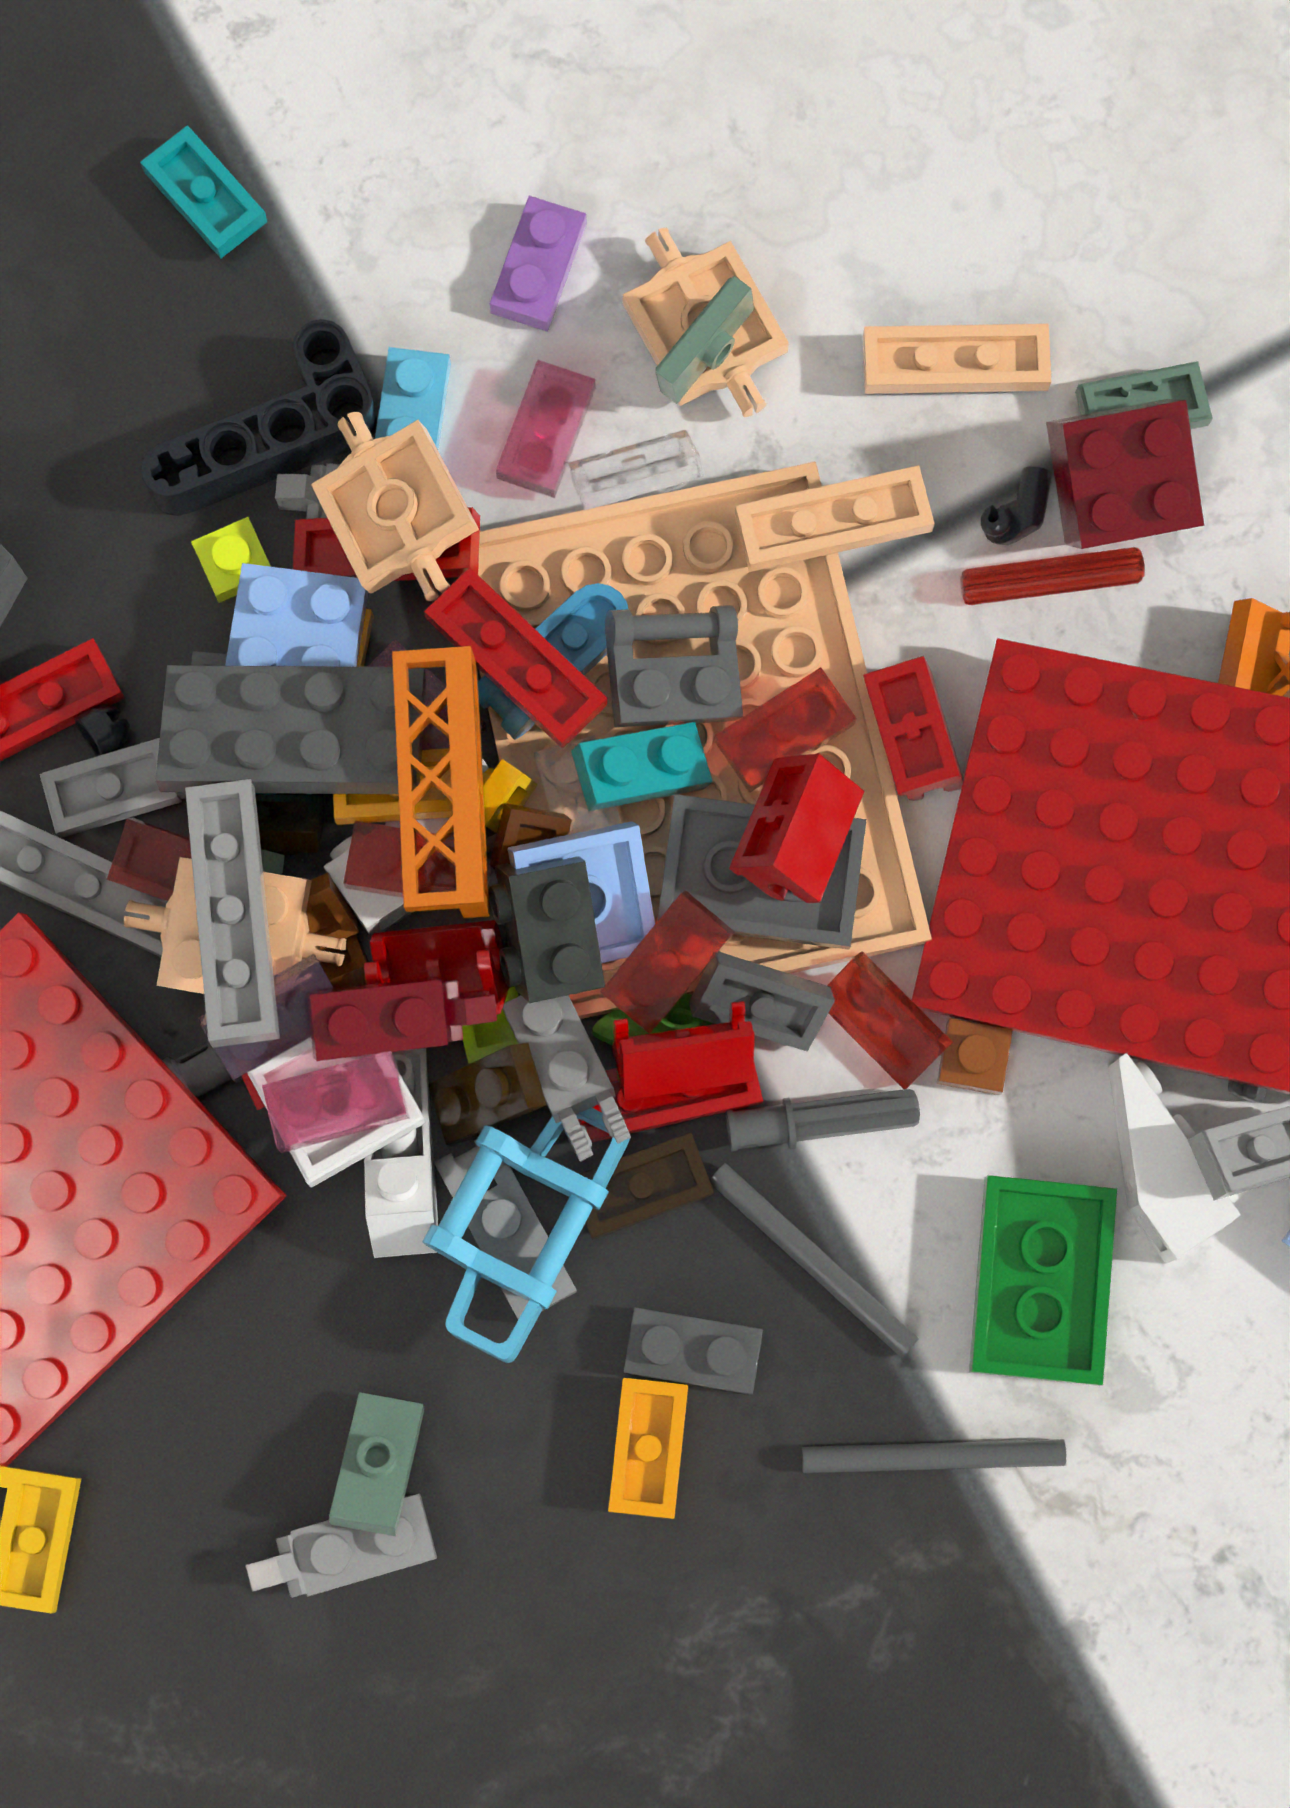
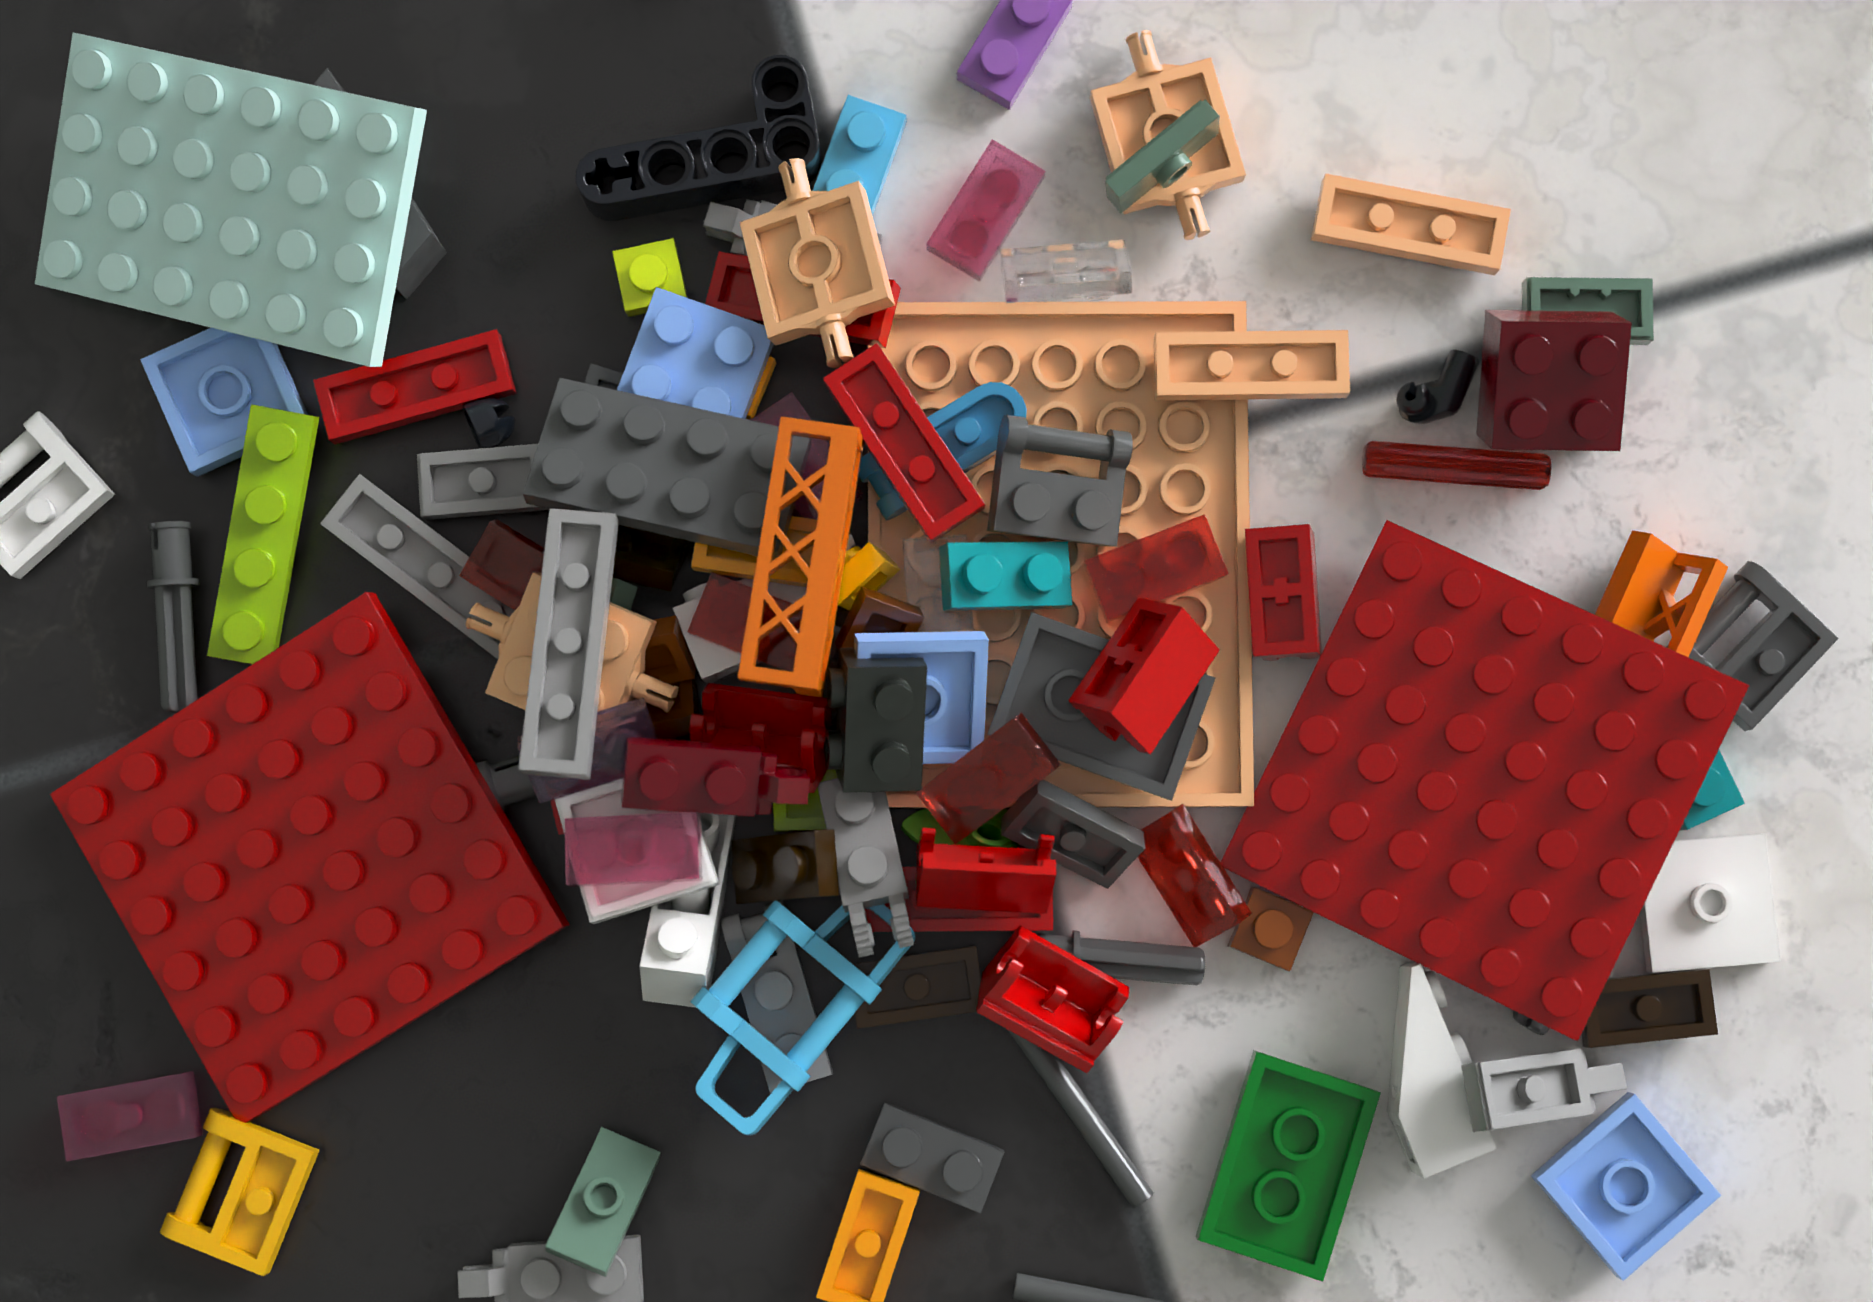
camera: 15 degrees right, 5 degrees up
(777, 1165) = (1052, 999): none -> red hinge

